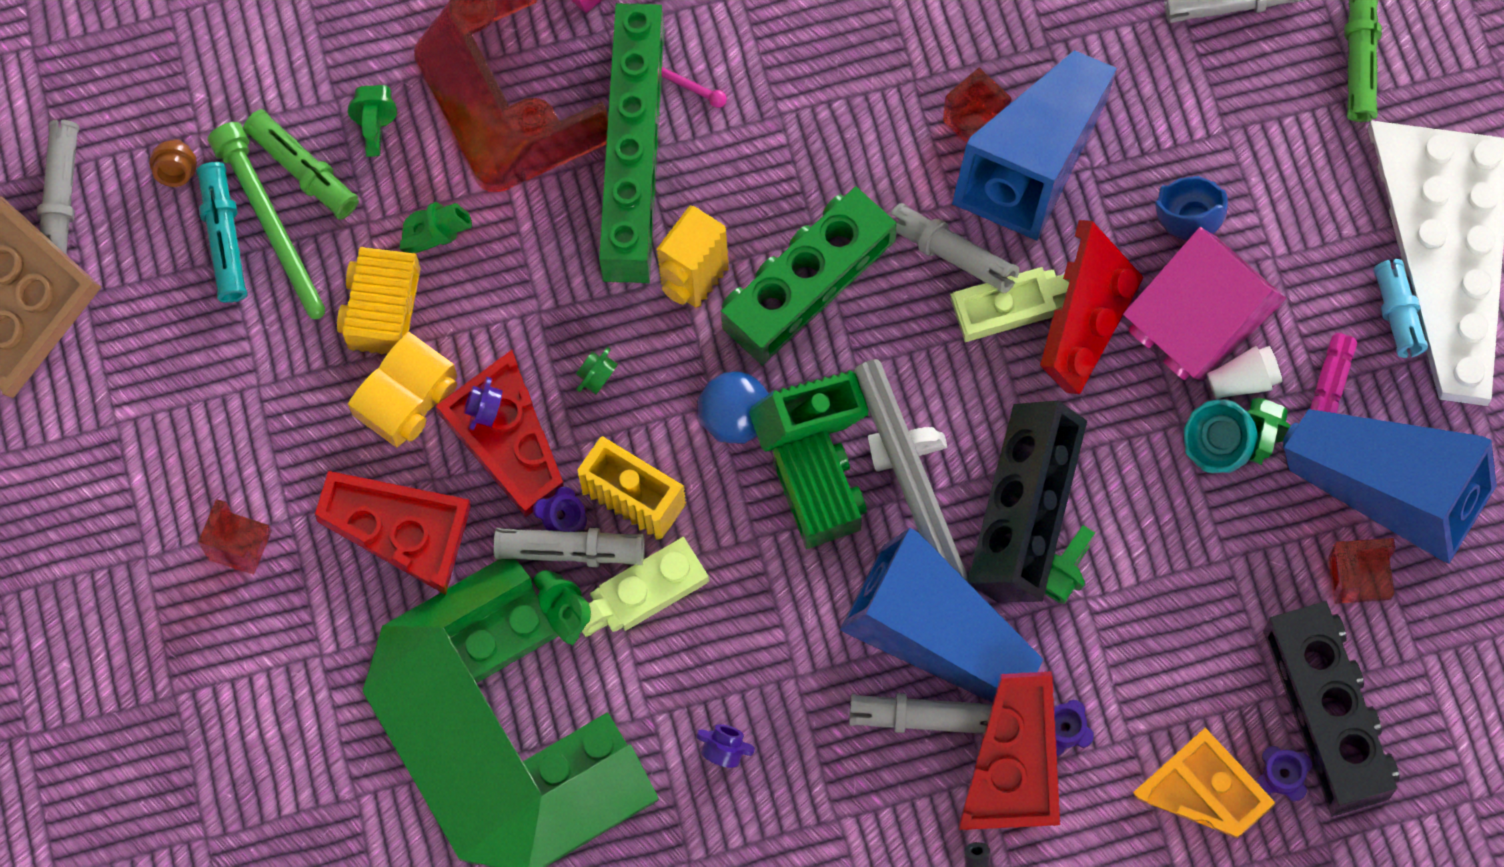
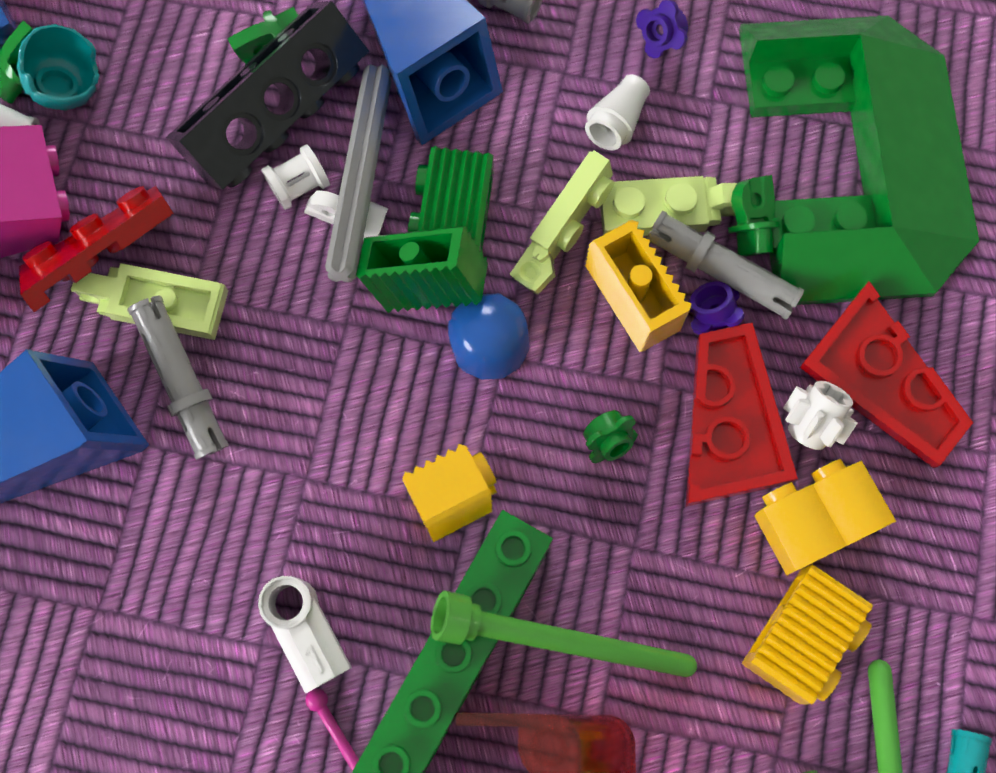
camera: 155 degrees left, 5 degrees up
(433, 227) = (710, 700): green piece -> none
(438, 462) = (820, 415): none -> white gear
(483, 404) = (752, 439): dark purple plate -> none
(634, 161) = (459, 620): none -> bright green piece
(718, 513) = (562, 223): none -> yellowish green hinge
(724, 646) = (616, 115): none -> white cone
(749, 128) = (305, 638): none -> white piece
(766, 331) = (253, 437): green brick -> none
(965, 452) = (280, 175): none -> white bush
(974, 104) = (53, 524): clear red panel -> none

